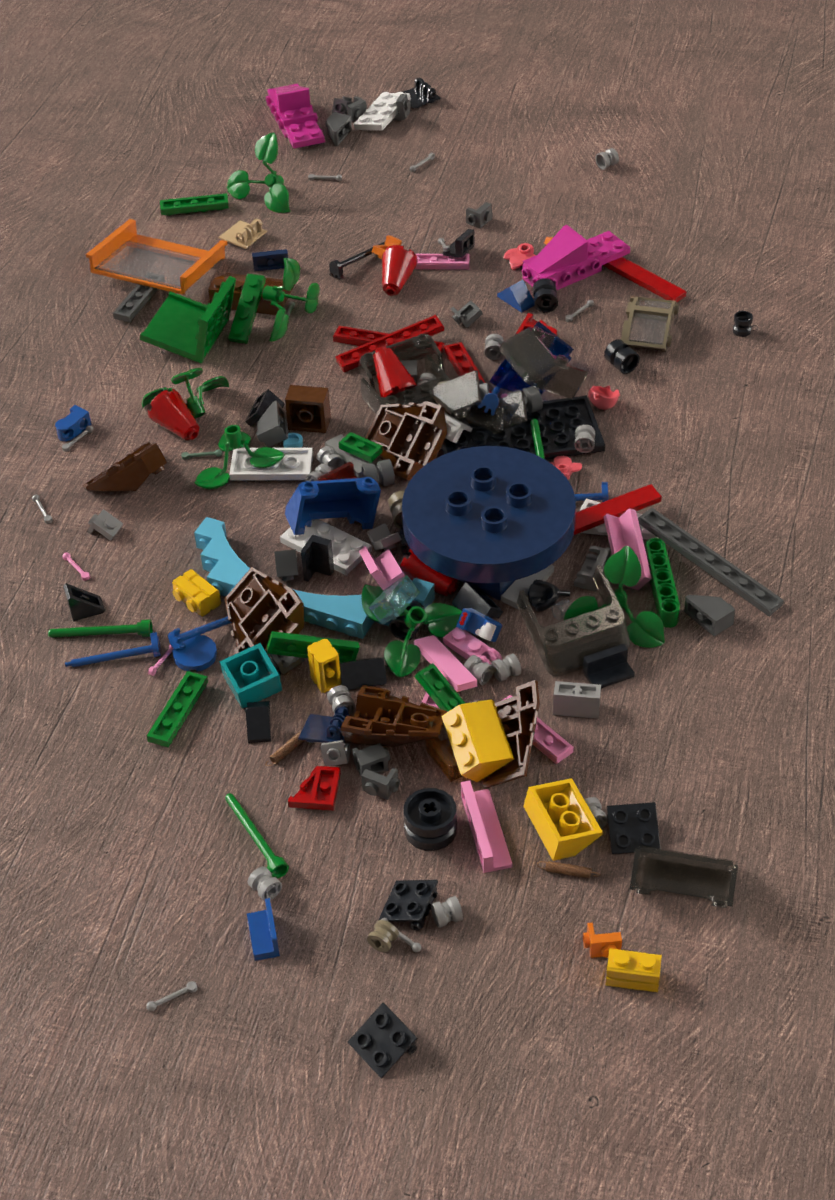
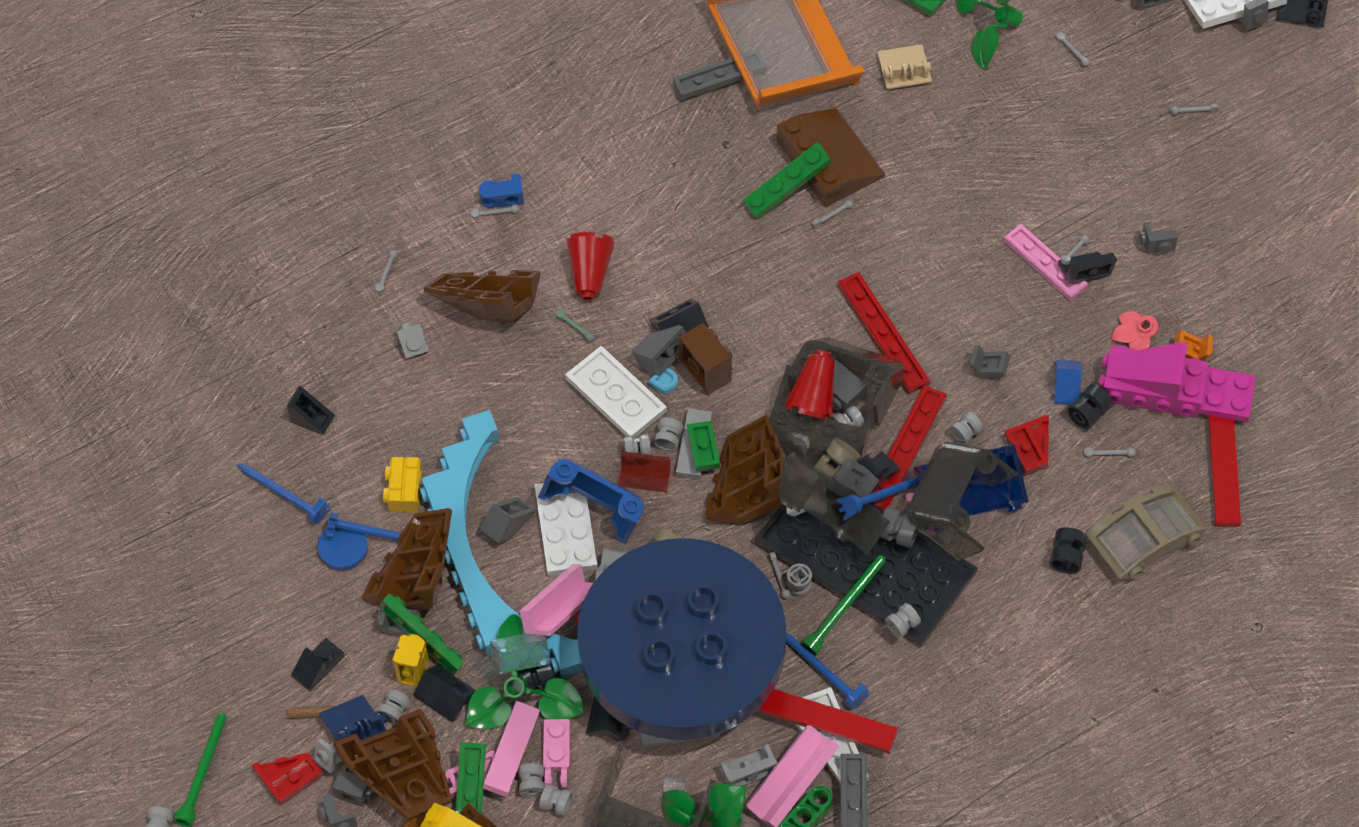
camera: 45 degrees right, 15 degrees up
(85, 575) = (346, 381): bright pink hinge -> none
(142, 628) = (329, 483): green piece -> none
(152, 670) = (295, 534): bright pink hinge -> none
(177, 709) = (270, 593): green plate -> none
(190, 326) = (718, 154): green bracket -> none
(193, 402) = (621, 261): green plant -> none
(235, 439) = (611, 384): green plant -> none
(251, 675) = (349, 616): teal brick -> none
(269, 260) = (891, 126): dark blue panel -> none
(276, 295) = (825, 189): green plant -> none
(317, 557) = (524, 536): black panel -> none
(336, 266) = (935, 194): black piece -> none
(350, 359) = (876, 338): red tile -> none
(381, 473) = (687, 491): dark grey wheel -> none
(390, 240) = (1013, 209): orange bracket -> none
(397, 268) = (982, 249): red cone -> none
(479, 624) = (583, 736): blue leg -> none
(544, 595) = (675, 757): black piece -> none
(566, 466) = (859, 630): coral plate -> none
(603, 397) = (991, 582): coral hair -> none
(742, 325) = (1245, 611): black wheel -> none

